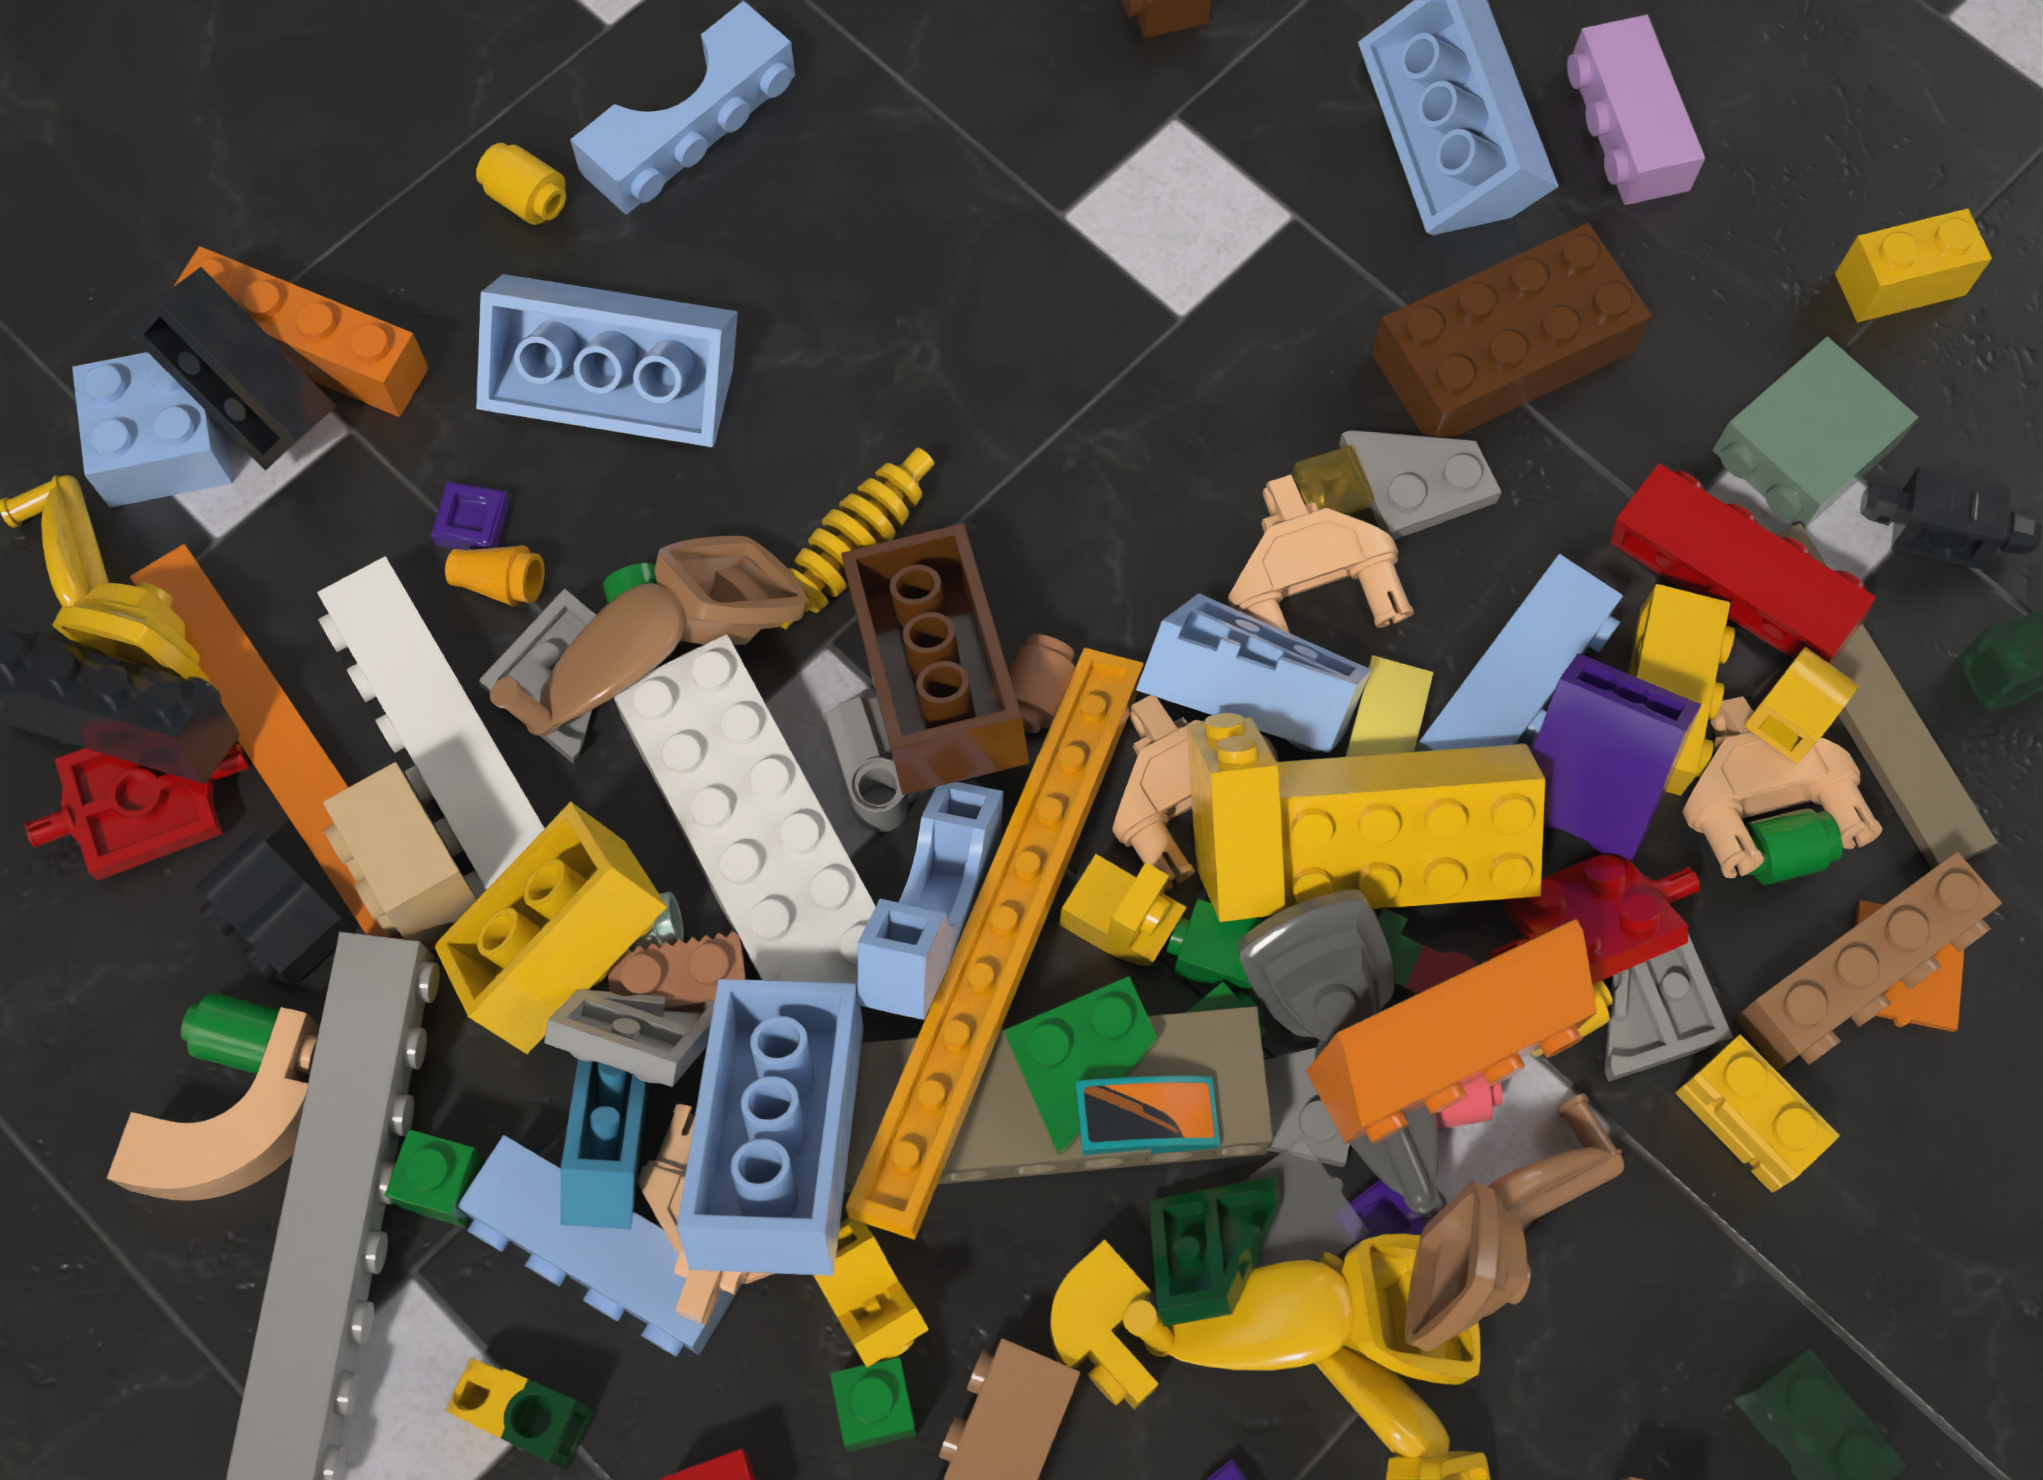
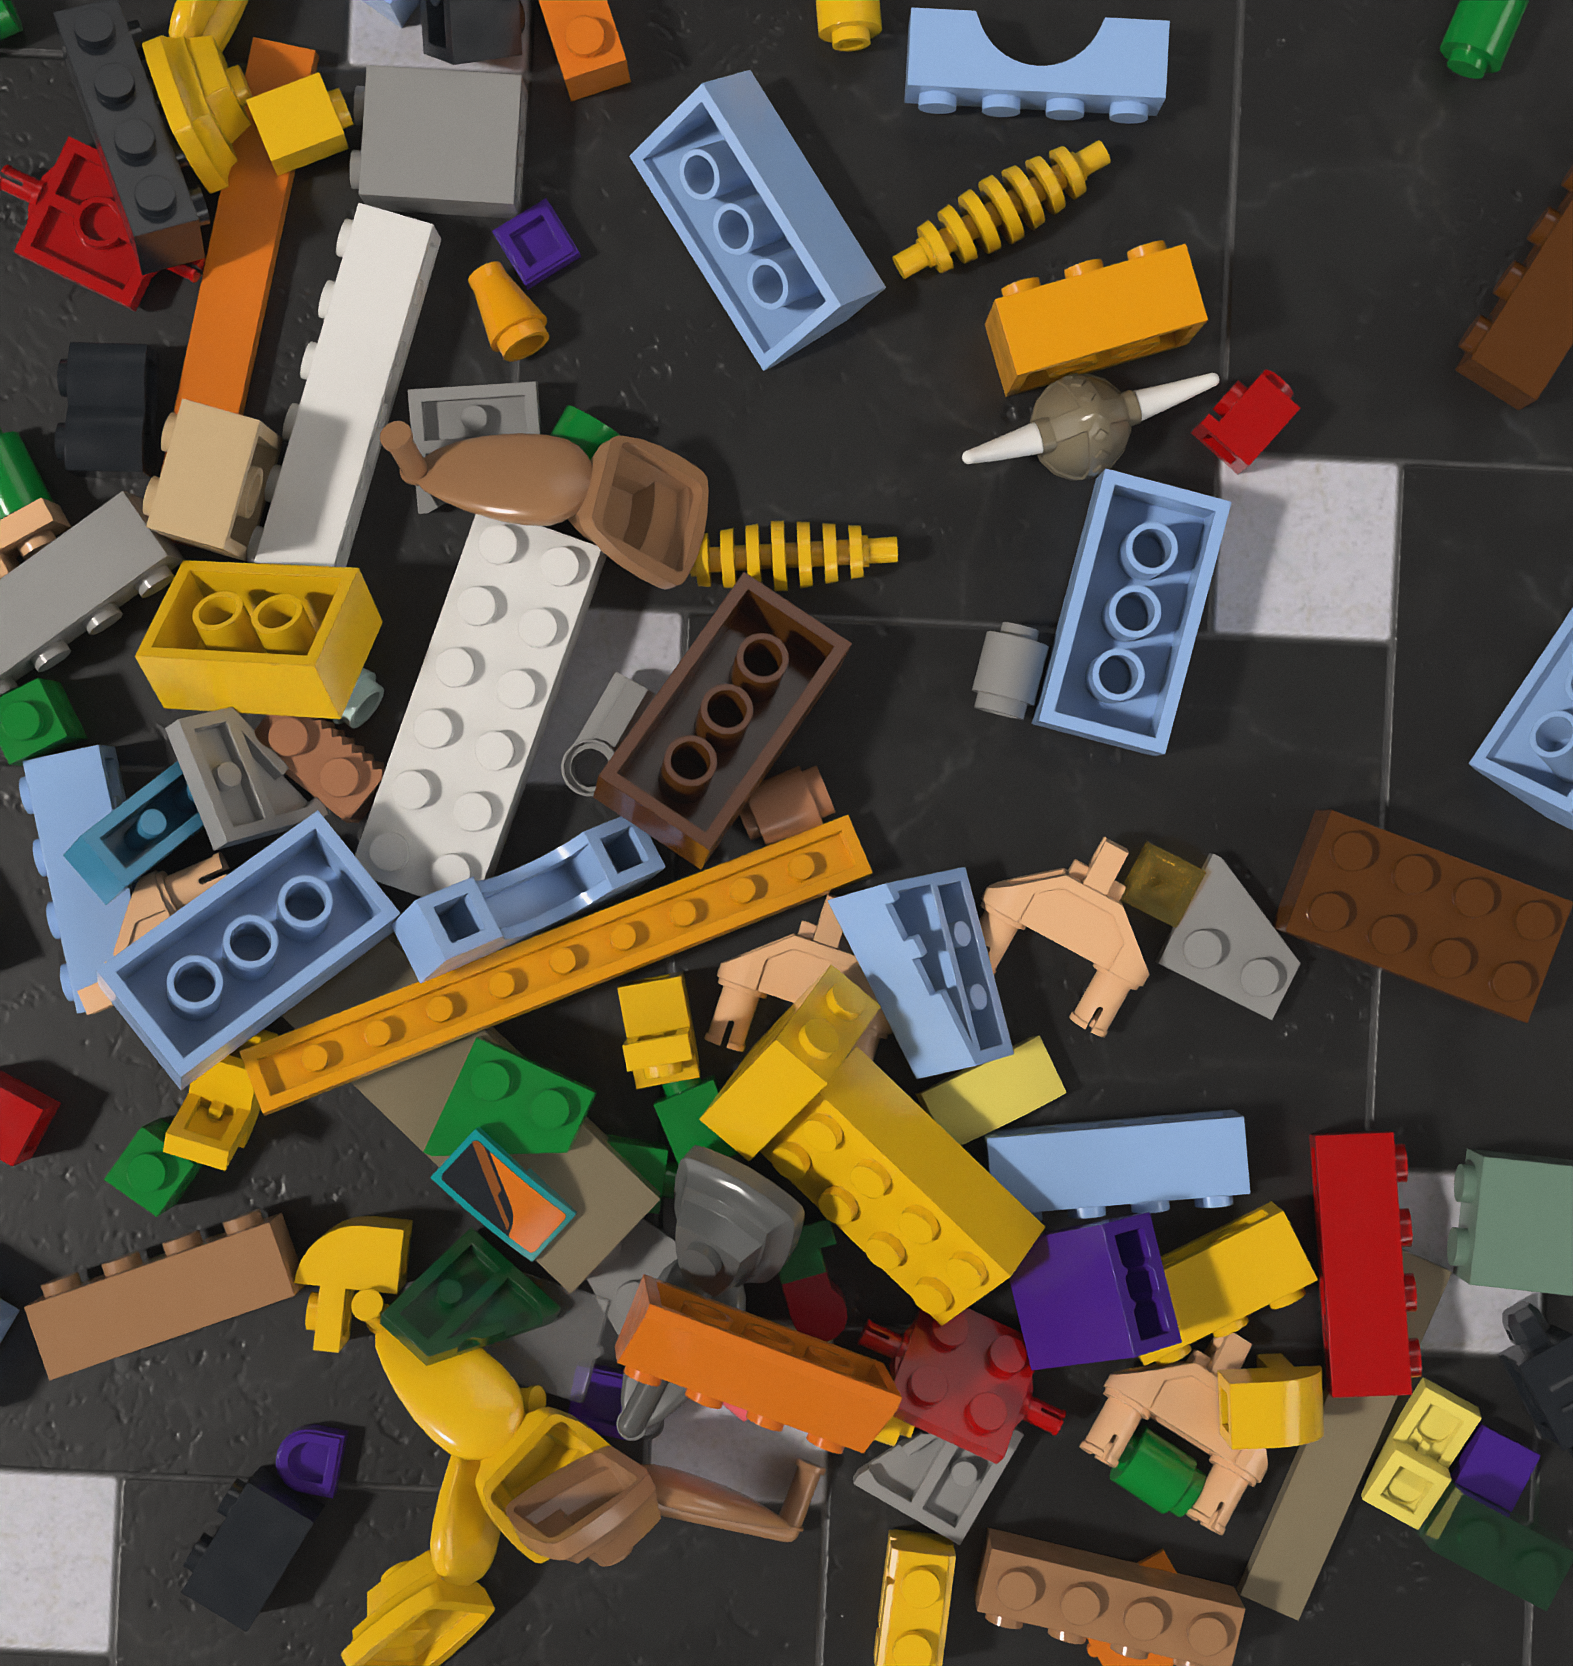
camera: 55 degrees right, 20 degrees up
(221, 586) = (301, 122): none -> yellow brick
(335, 509) = (440, 141): none -> light grey brick
(759, 206) = (1002, 209): none -> yellow piece
(892, 197) = (1095, 317): none -> light orange brick
(957, 267) = (1085, 423): none -> dark tan helmet
(1055, 174) = (1247, 420): none -> red brick
(1083, 455) = (1009, 670): none -> light grey brick
(1119, 341) = (1131, 612): none -> light blue brick
(1925, 658) = (1418, 1452): none -> light yellow slope
(1975, 608) = (1495, 1466): none -> dark purple tile

